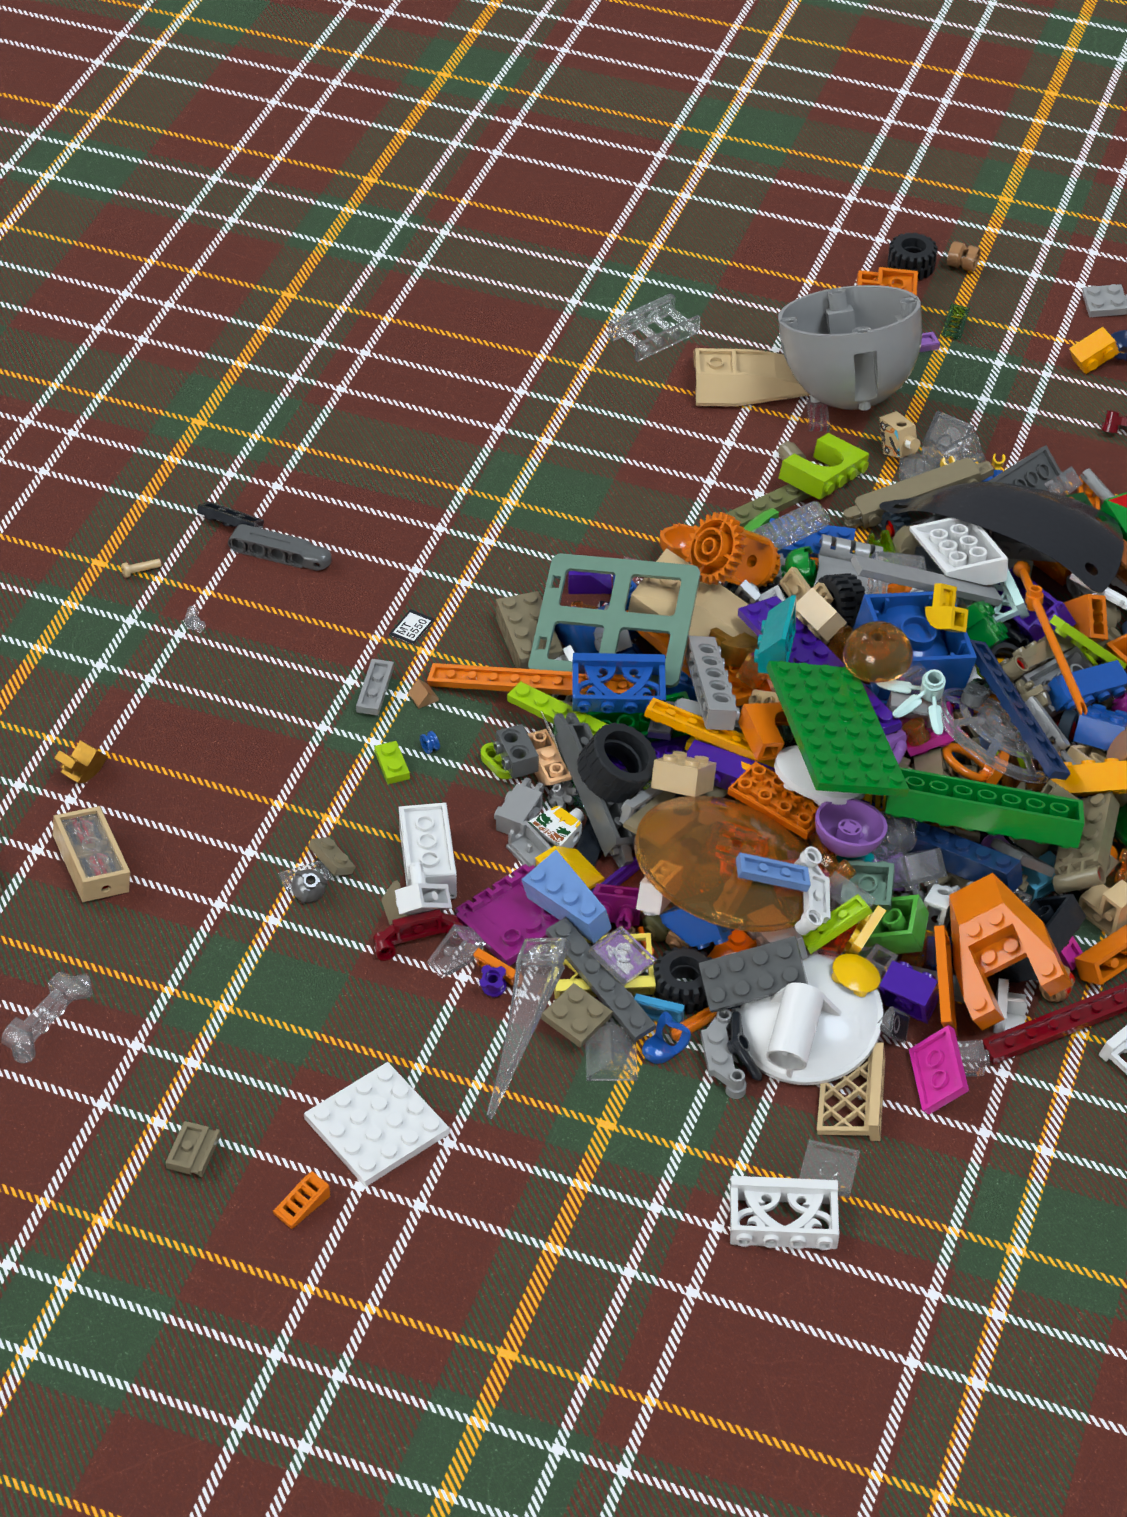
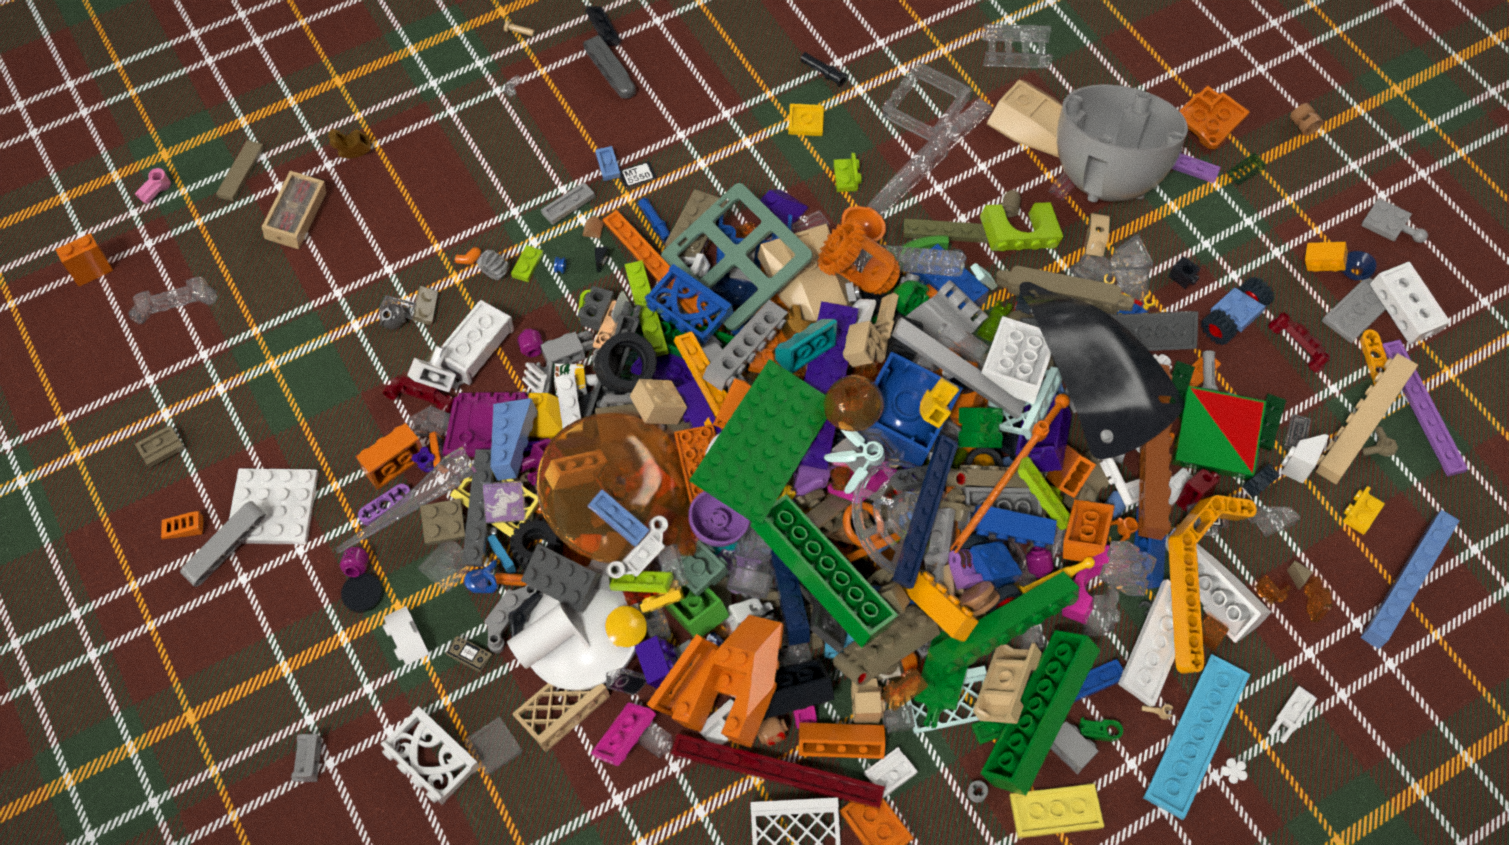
camera: 40 degrees right, 15 degrees up
(328, 790) = (470, 258): none -> orange arm
(365, 778) = (492, 264): none -> light grey gear
(374, 1179) = (223, 543): none -> light grey beam
(375, 631) = (607, 163): none -> medium blue plate
(458, 995) = (389, 456): none -> orange brick
(462, 713) = (601, 257): none -> black slope
(478, 823) = (529, 342): none -> magenta head
(487, 654) = (659, 225): none -> blue pin
(494, 1056) = (369, 508): none -> medium lavender beam
(506, 439) = (829, 72): none -> black pin
(507, 848) = (533, 381): none -> white tile
(524, 1108) = (354, 561): none -> magenta head
(525, 491) = (806, 119): none -> yellow tile
(557, 1133) = (361, 593): none -> black tile
(582, 844) = (568, 399): none -> white plate
(617, 513) = (846, 174): none -> lime bracket
(623, 392) = (936, 79): none -> clear window
(648, 1133) = (405, 635): none -> white brick
(669, 1298) = (307, 758): none -> light grey hinge
(677, 455) = (929, 156): none -> clear slope
(720, 1112) = (469, 654): none -> tile
(838, 519) = (983, 276): none -> light aqua plate
(913, 253) = (1265, 96): black tyre -> none
(995, 427) = (1185, 273): none -> black brick
(1064, 482) = (1185, 350): clear brick -> none
(1071, 430) = (1237, 310): none -> plate
(1088, 742) = (963, 569): none -> medium lavender leg

